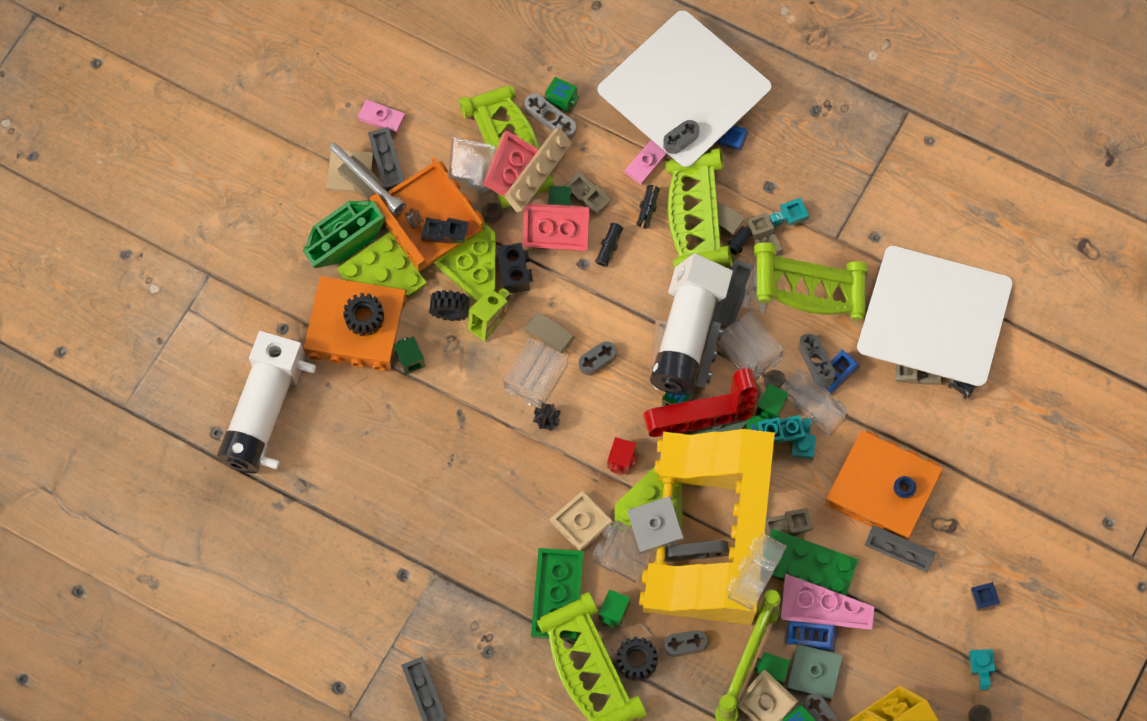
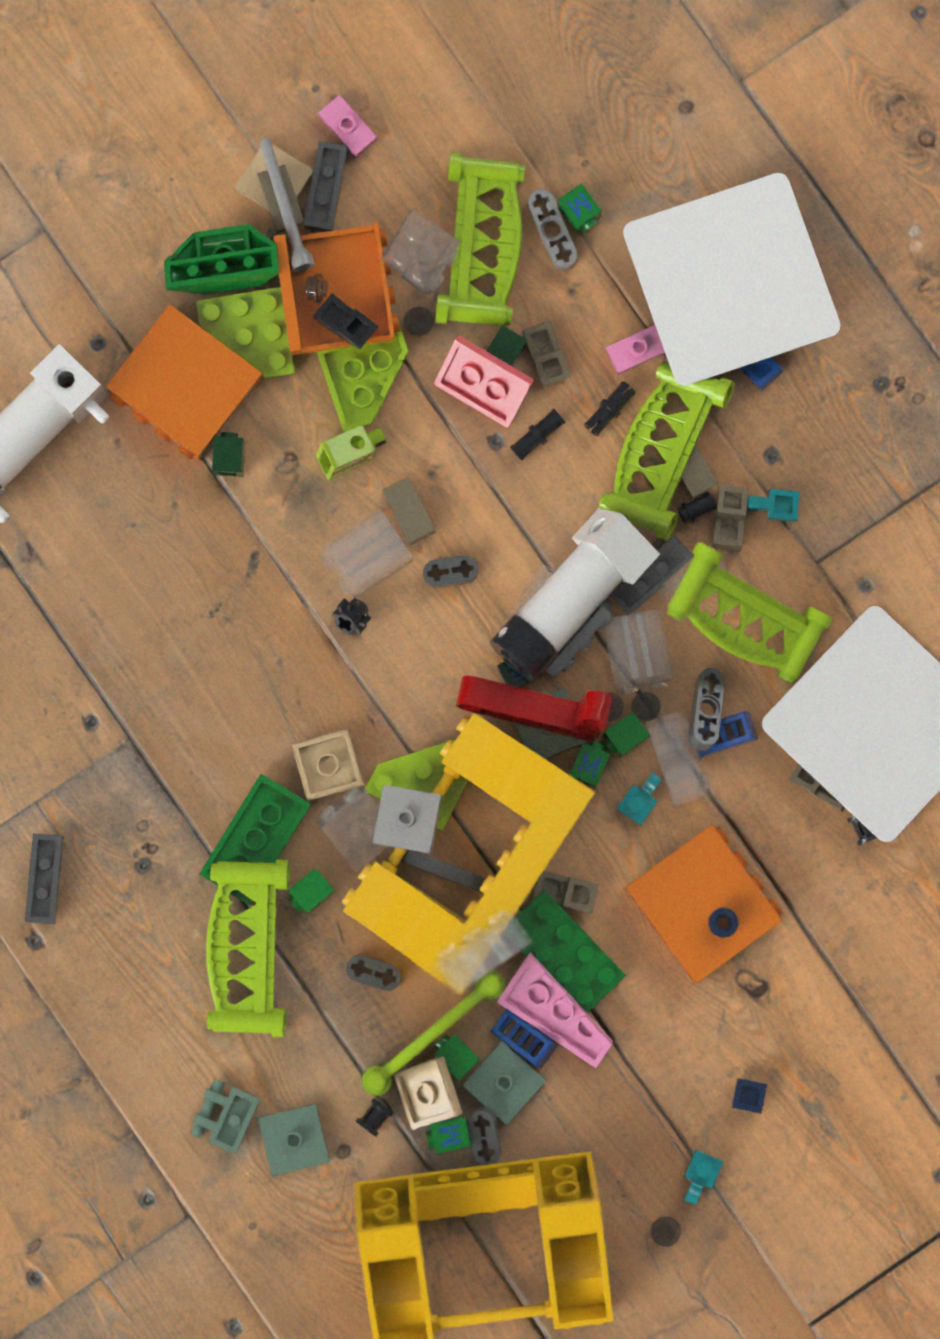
camera: 25 degrees right, 15 degrees up
(363, 302) = (189, 365): black tyre -> none
(449, 305) = (305, 419): black tyre -> none
(508, 162) = (466, 282): coral plate -> none
(513, 268) = (401, 406): black brick -> none
(538, 169) = (497, 298): tan plate -> none
(622, 456) = (415, 711): red brick -> none
(637, 645) = (302, 945): black tyre -> none
(678, 133) = (691, 337): dark grey beam -> none
(784, 429) = (616, 776): teal slope -> none
(900, 548) = (681, 989): dark grey plate -> none

